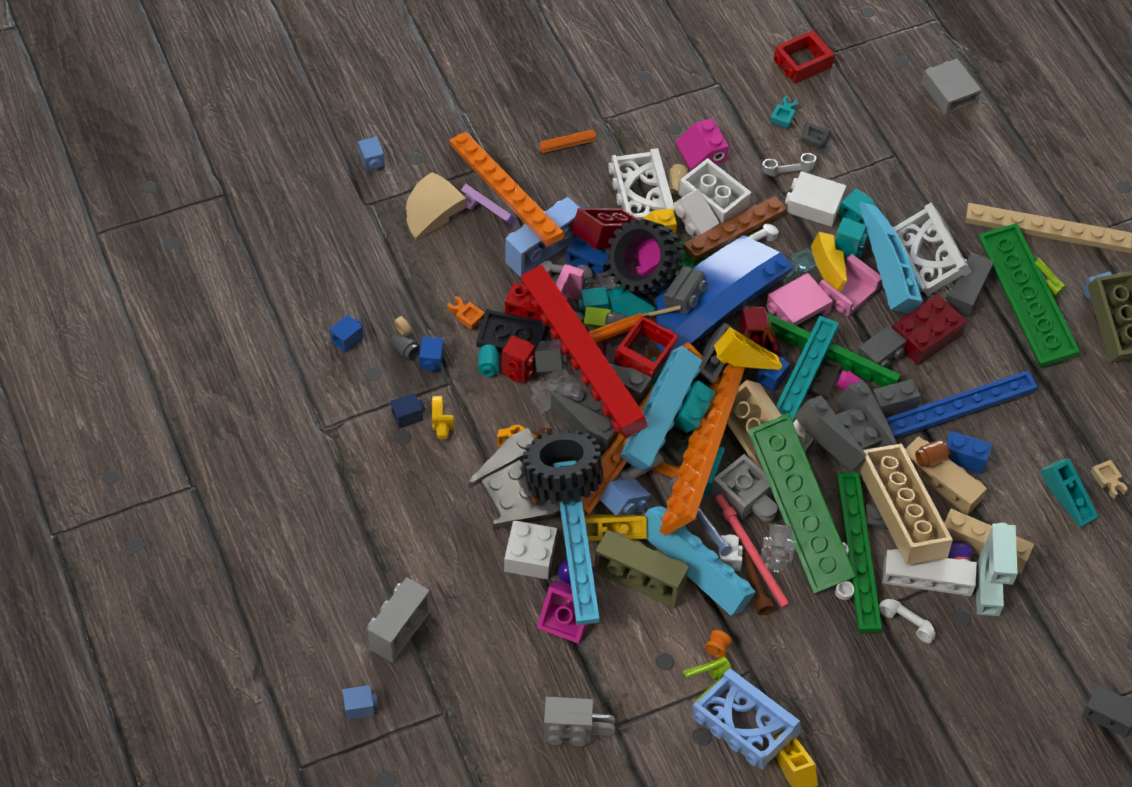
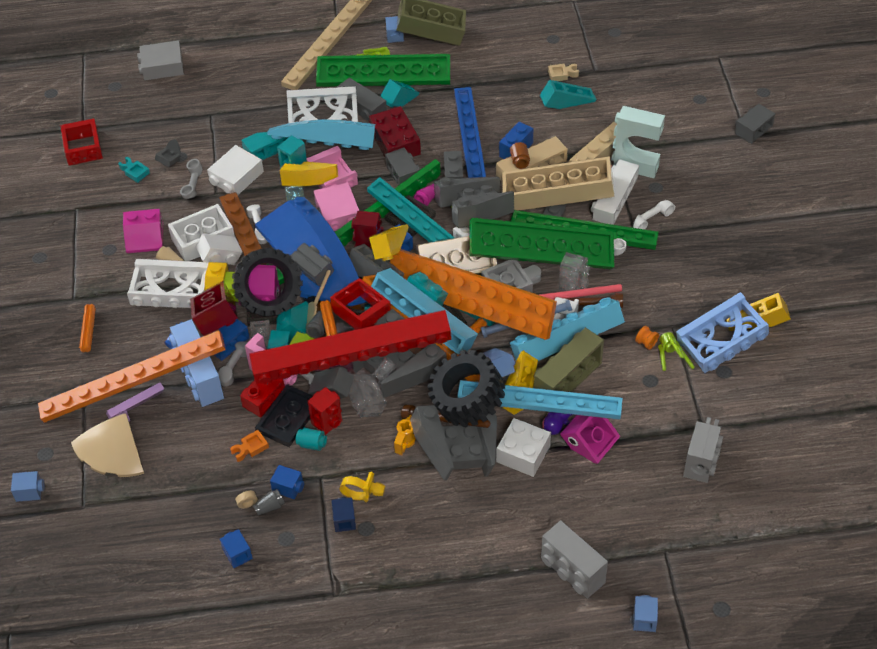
camera: 70 degrees left, 5 degrees down
(996, 318) = (398, 93): none -> teal slope

